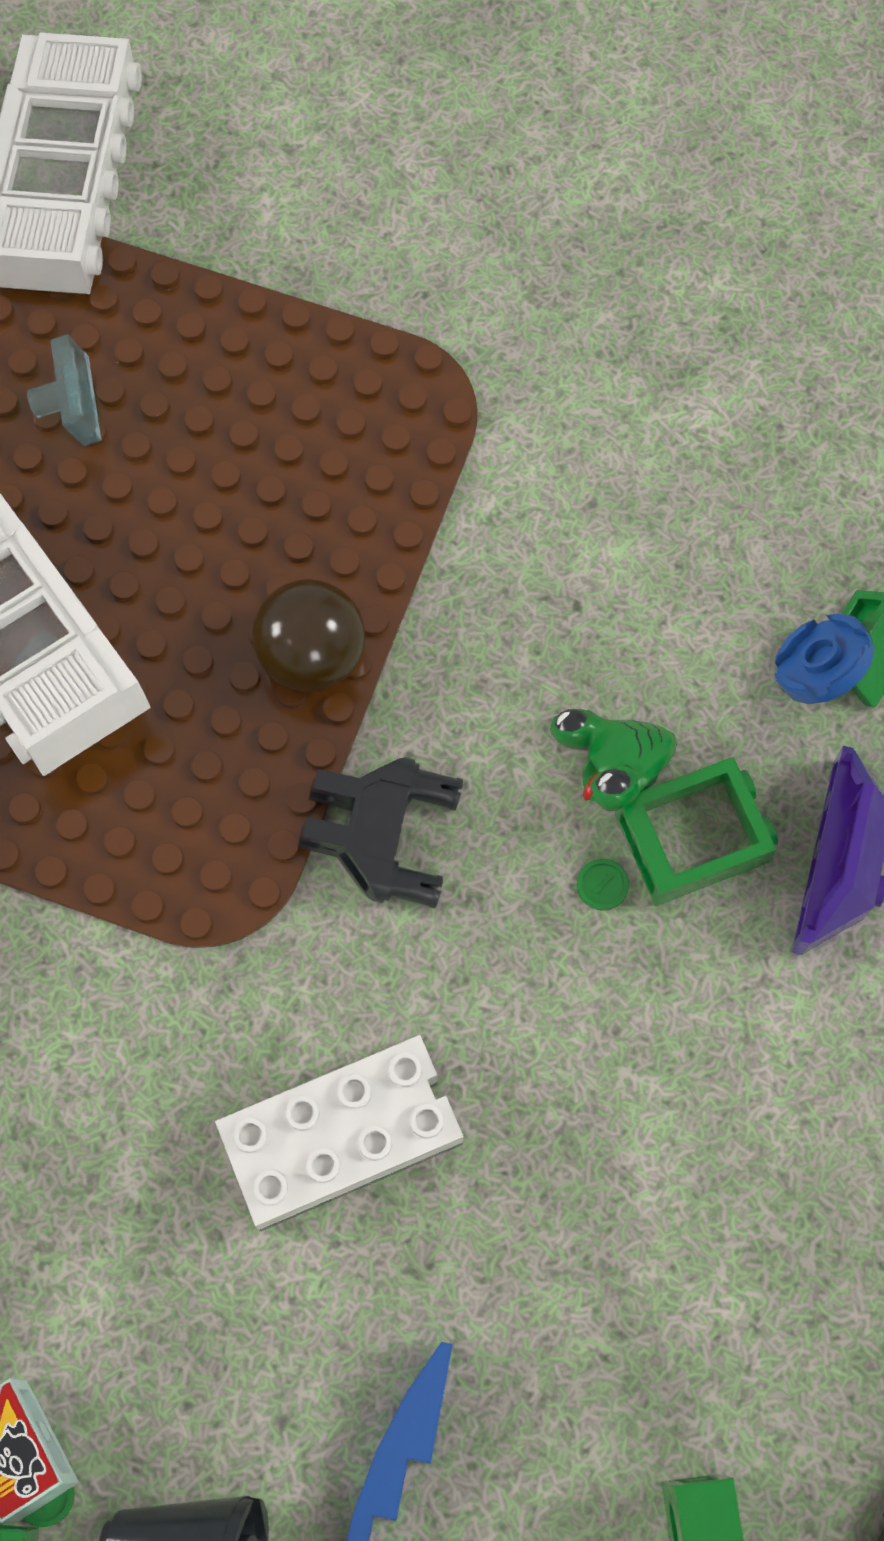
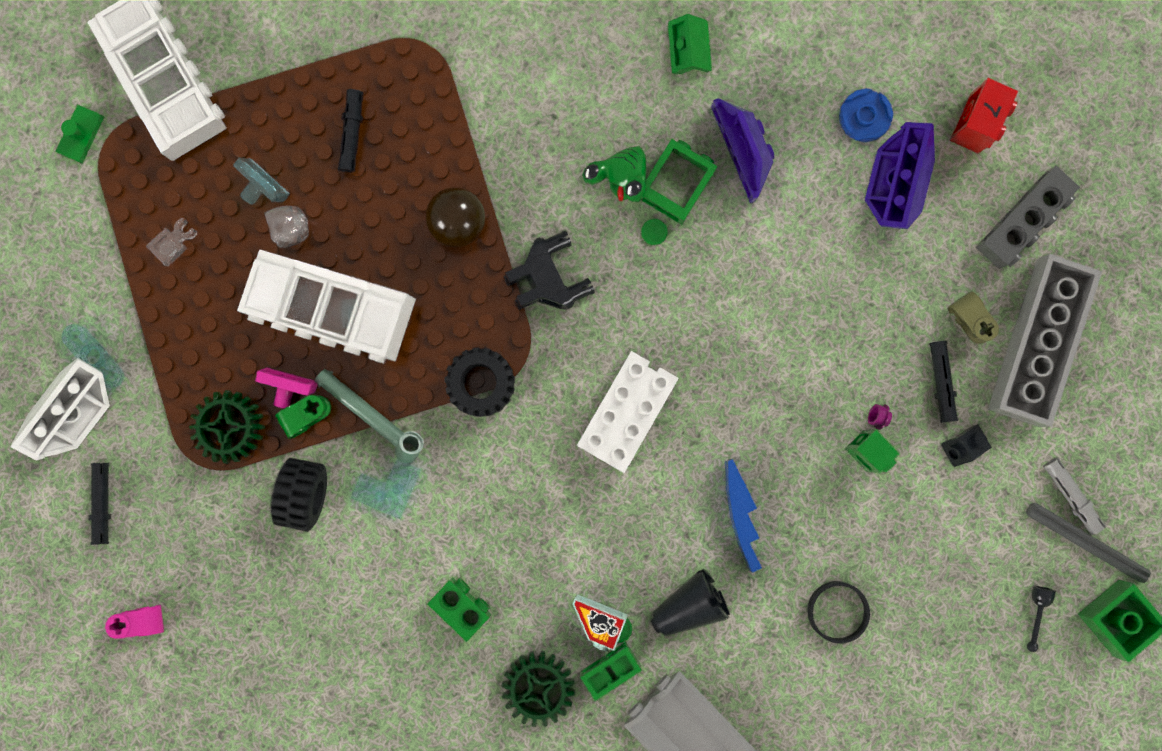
camera: 30 degrees left, 15 degrees up
(57, 472) = (287, 225): none -> clear helmet
(119, 875) = (456, 382): none -> black tyre
(270, 402) = (350, 135): none -> black pin
(762, 1470) = (883, 415): none -> magenta plate
(824, 659) = (678, 65): blue tile -> none

